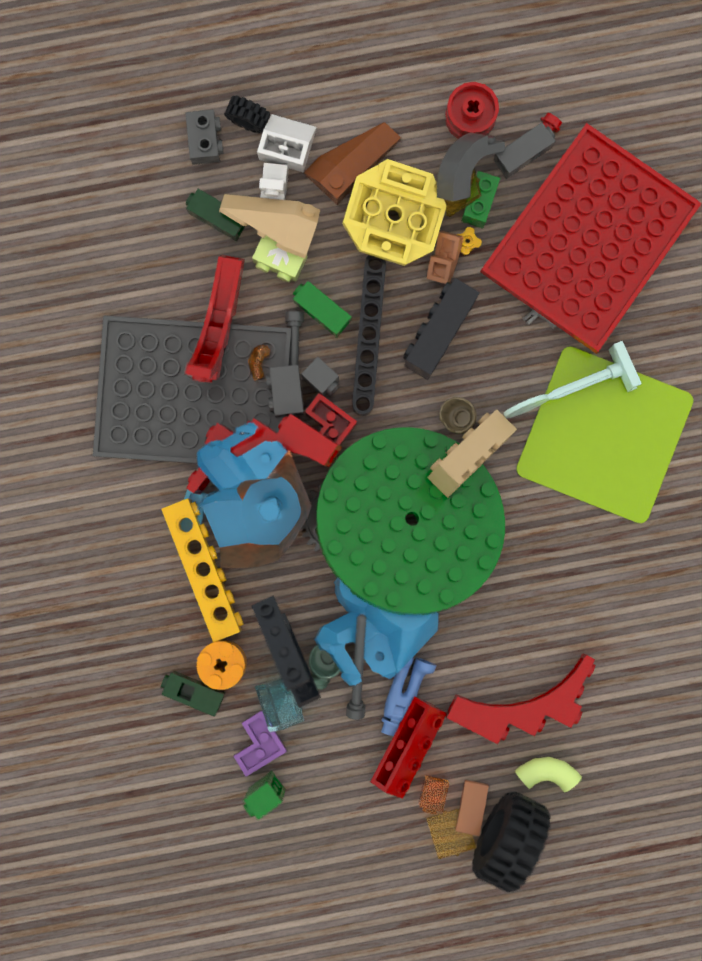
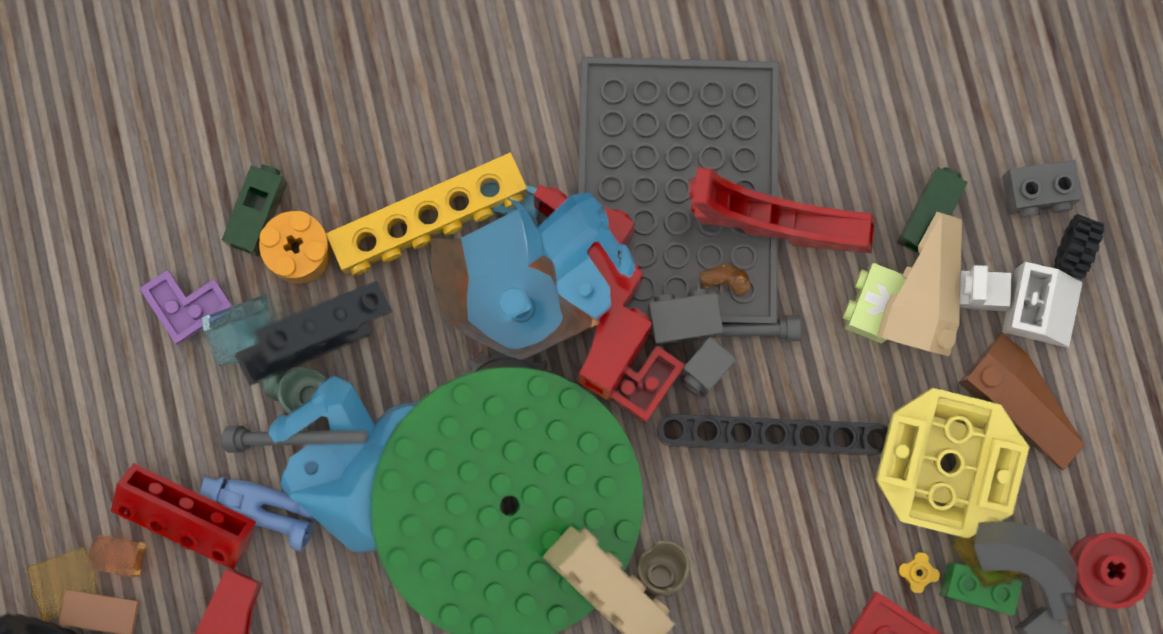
camera: 80 degrees right, 5 degrees down
(264, 796) = (110, 312): green brick -> none
(321, 308) = (807, 365): green brick -> none
(441, 329) = (788, 538): black brick -> none
(446, 257) = (892, 542): nougat slope -> none

